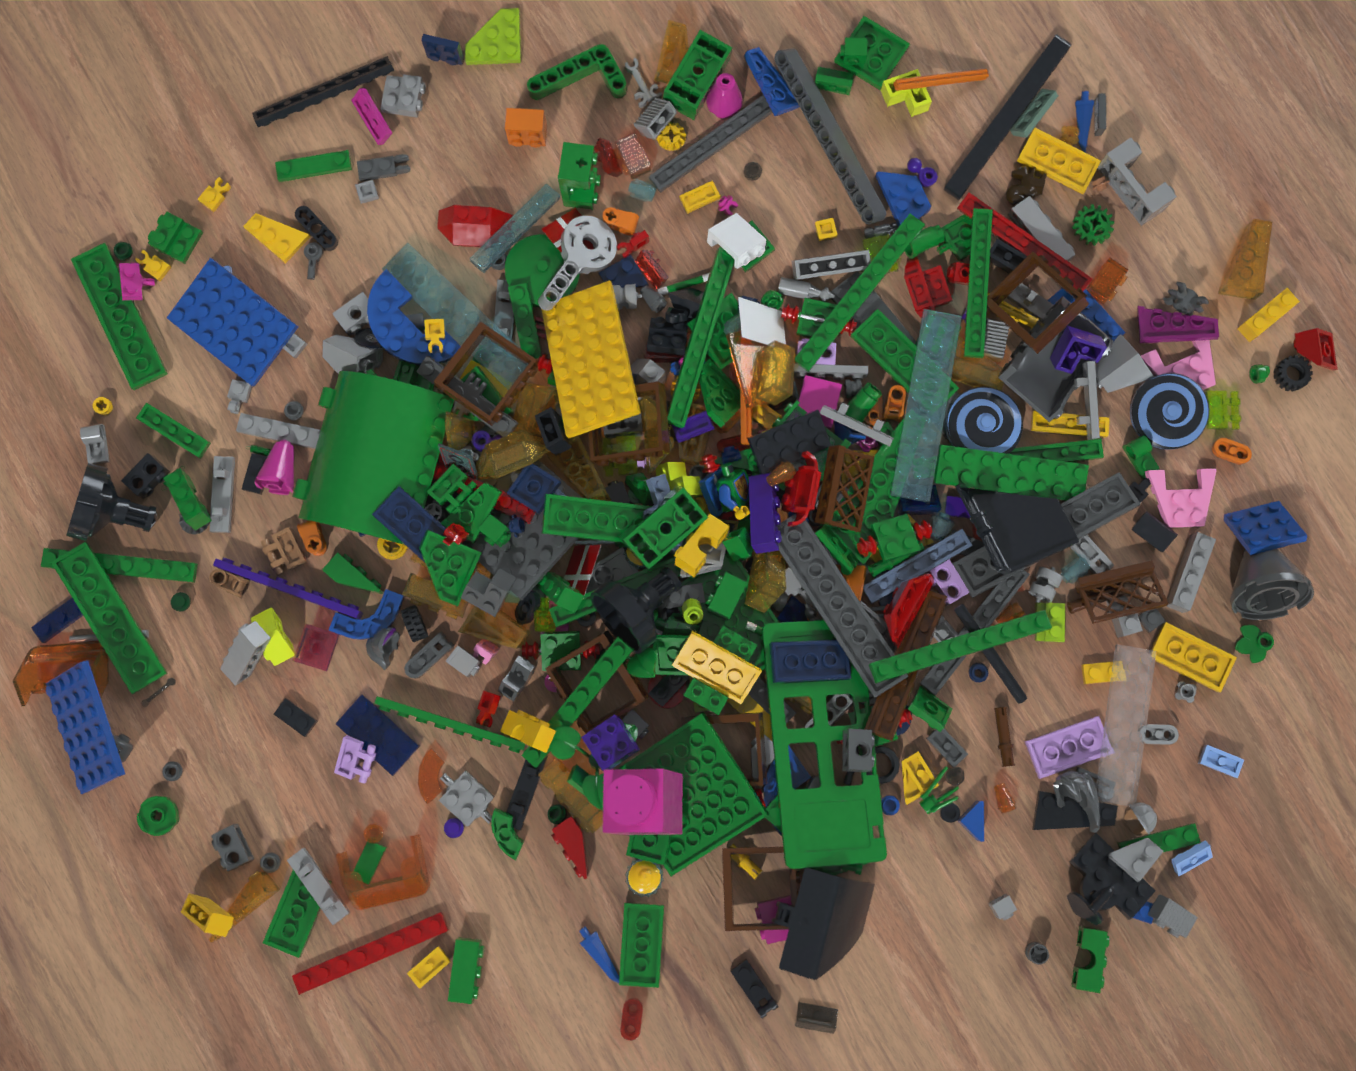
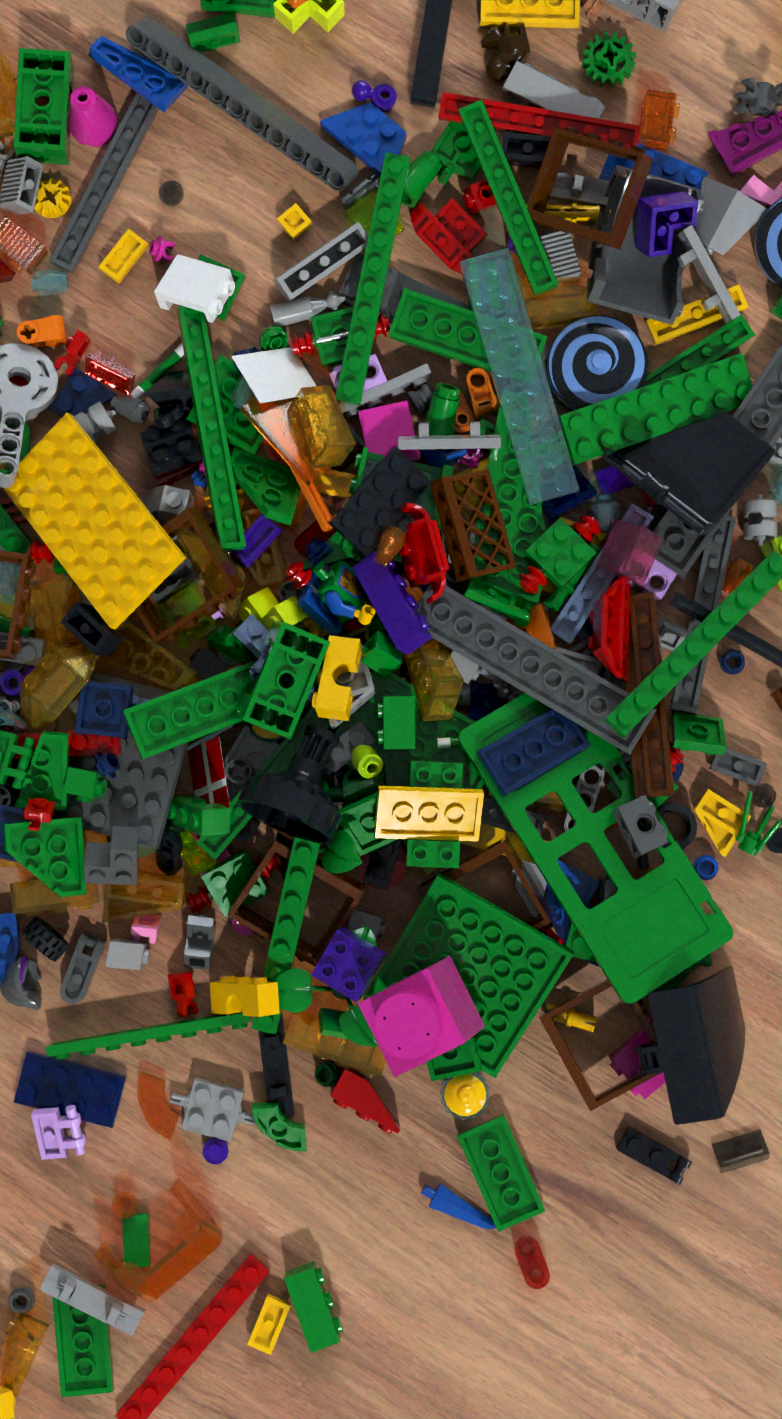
camera: 30 degrees left, 5 degrees up
(944, 560) = (630, 551): none -> clear pink slope

